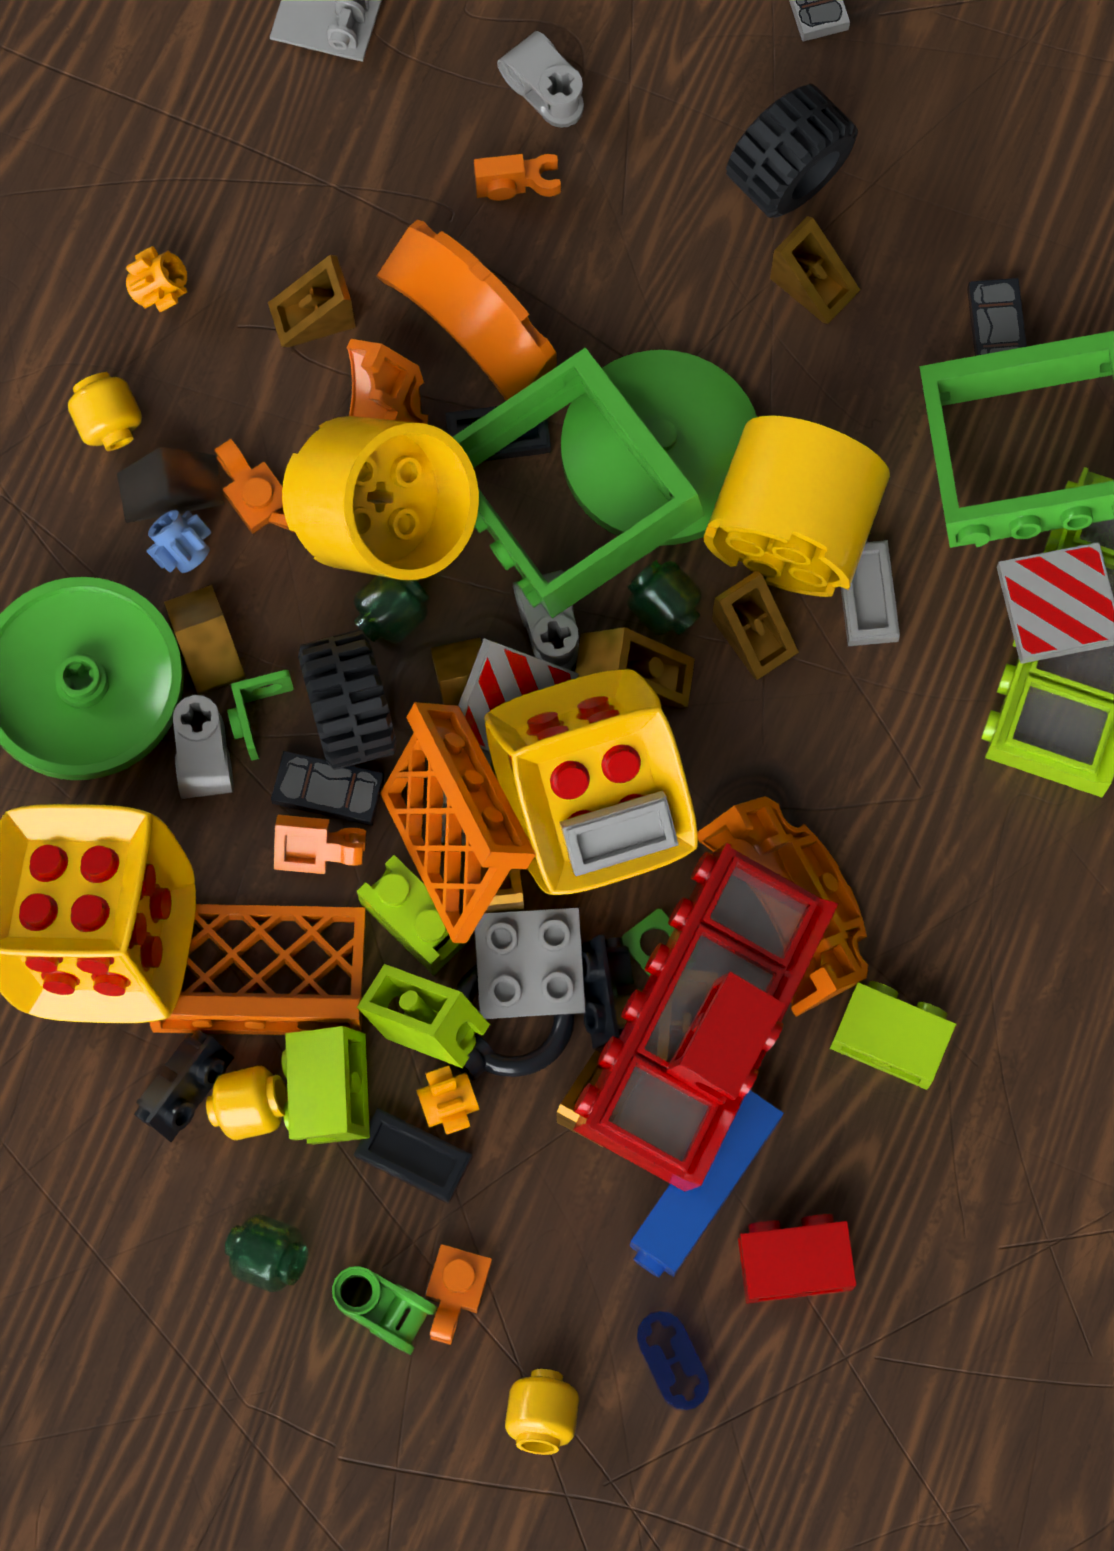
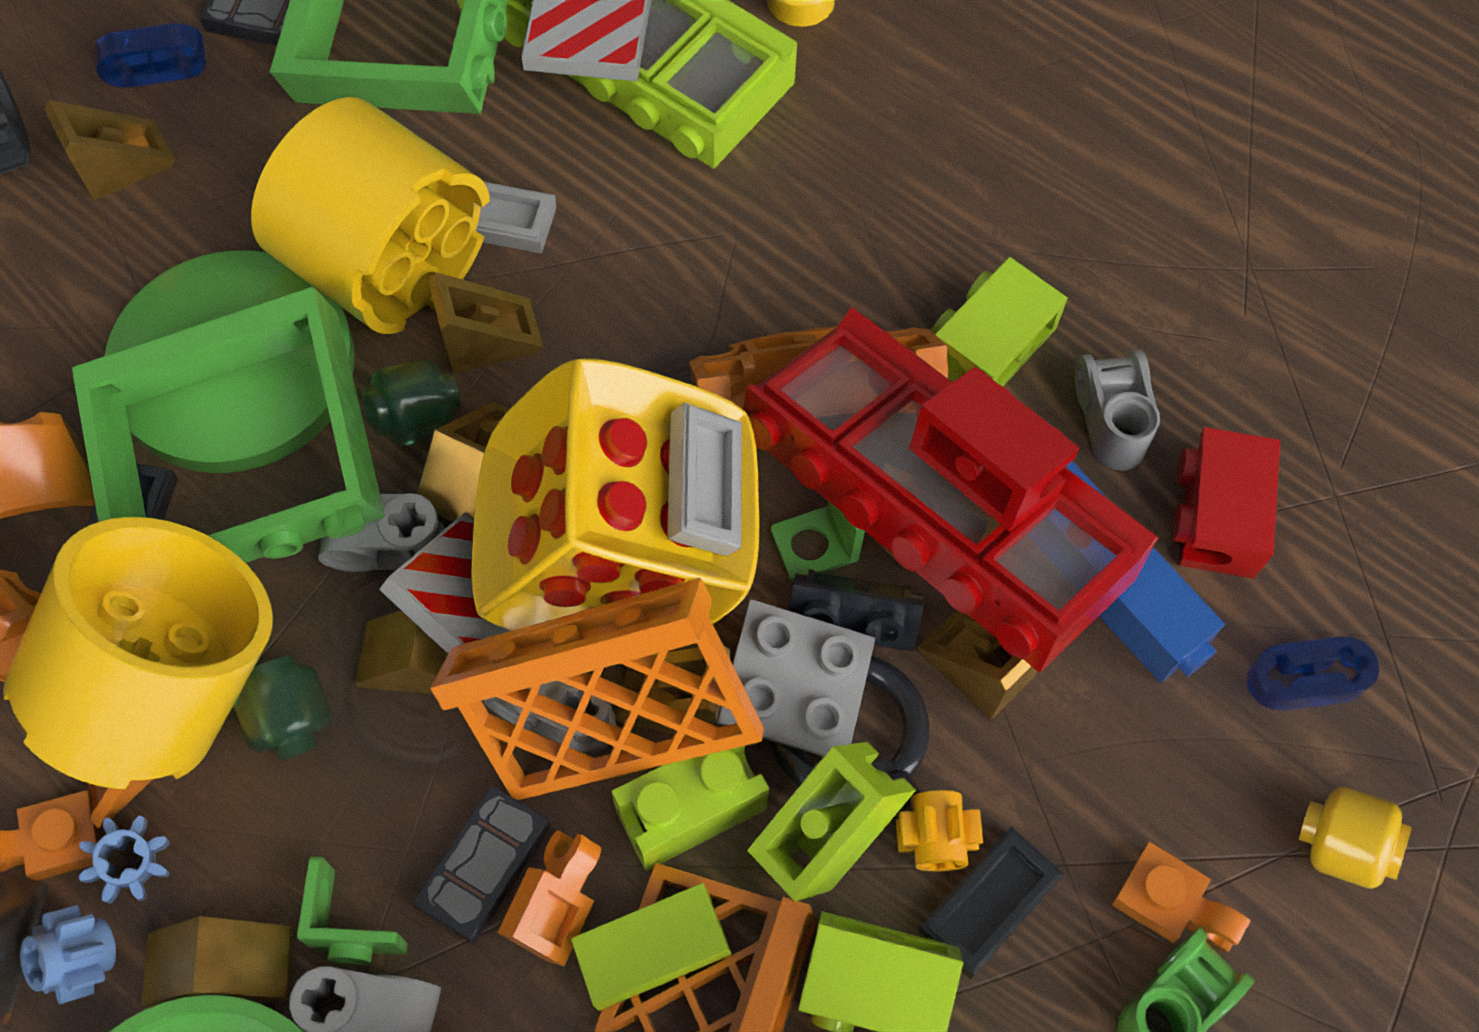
camera: 75 degrees left, 10 degrees down
(242, 537) = (119, 841): none -> medium blue gear
(302, 922) = (650, 947): none -> lime tile
(347, 699) = (383, 785): black tyre -> none
(867, 1148) = (1117, 396): none -> light grey piece
(914, 261) = (150, 55): none -> clear blue beam

